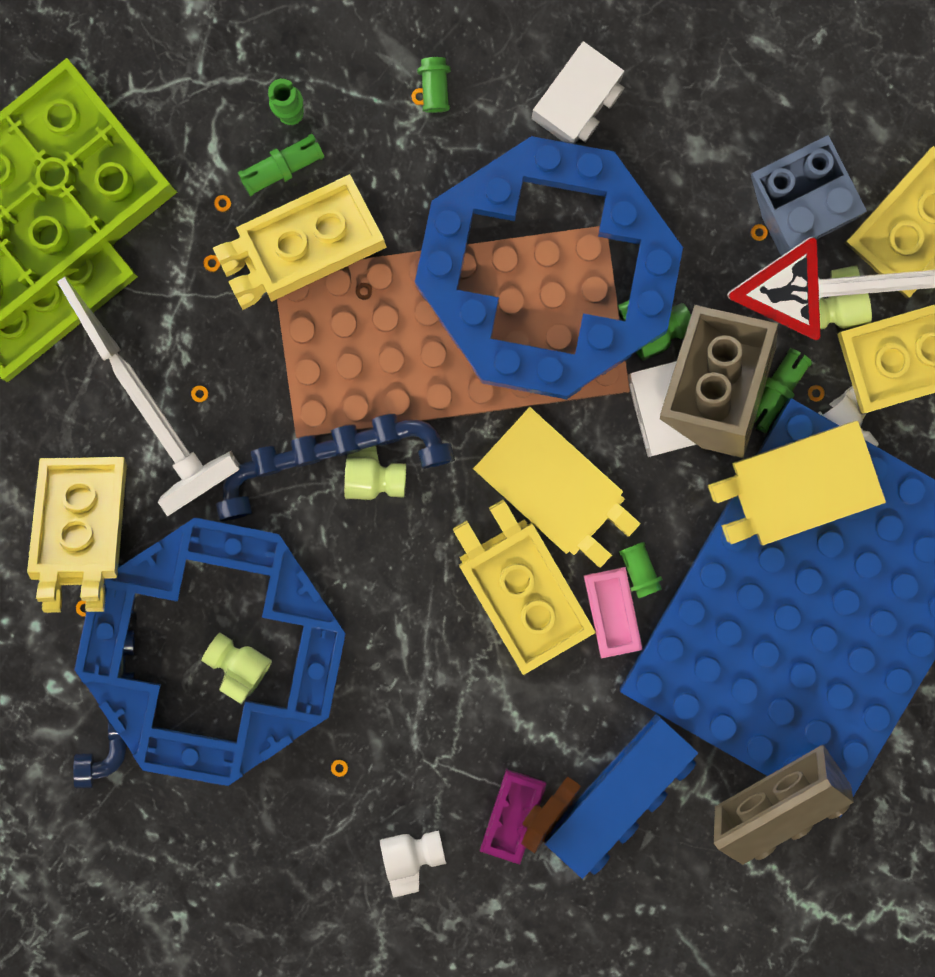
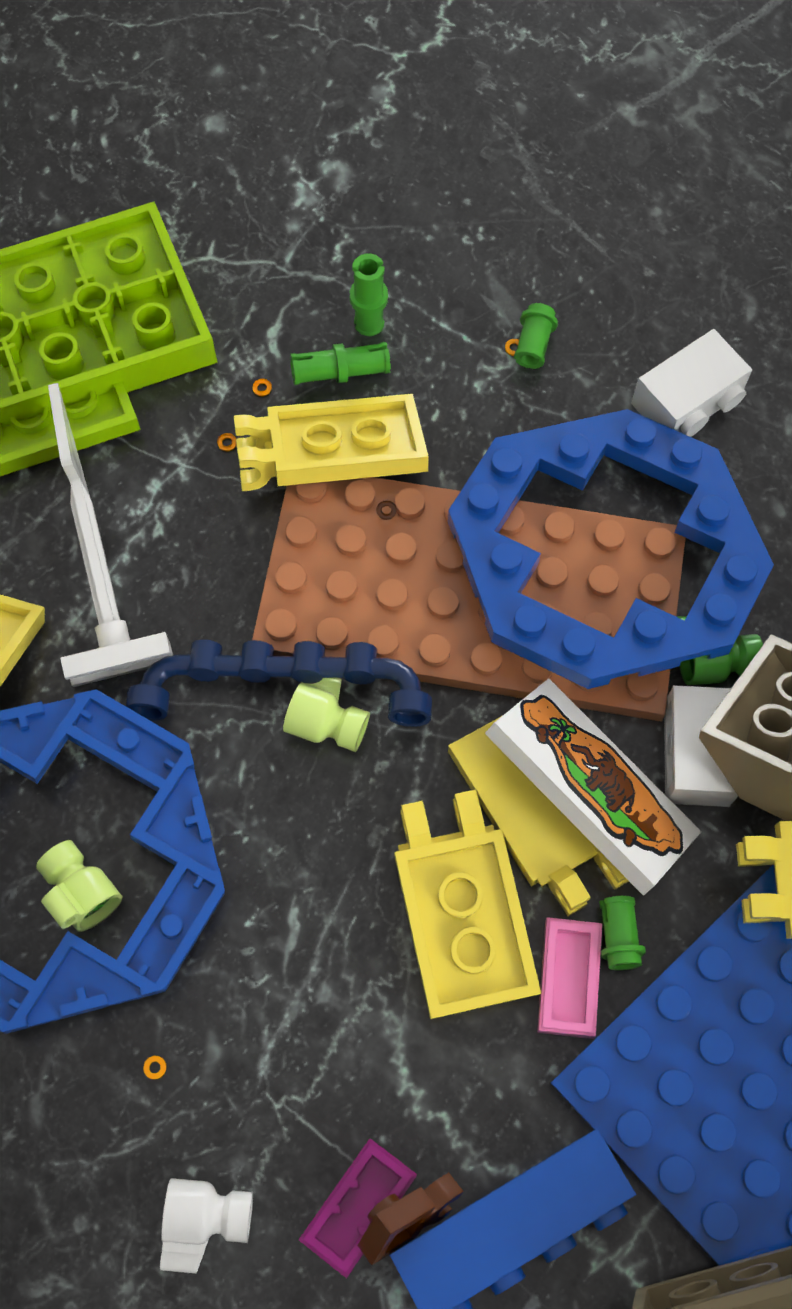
camera: 20 degrees right, 20 degrees down
(195, 389) = (159, 577): light orange piece -> none
(591, 469) = (594, 785): none -> tile

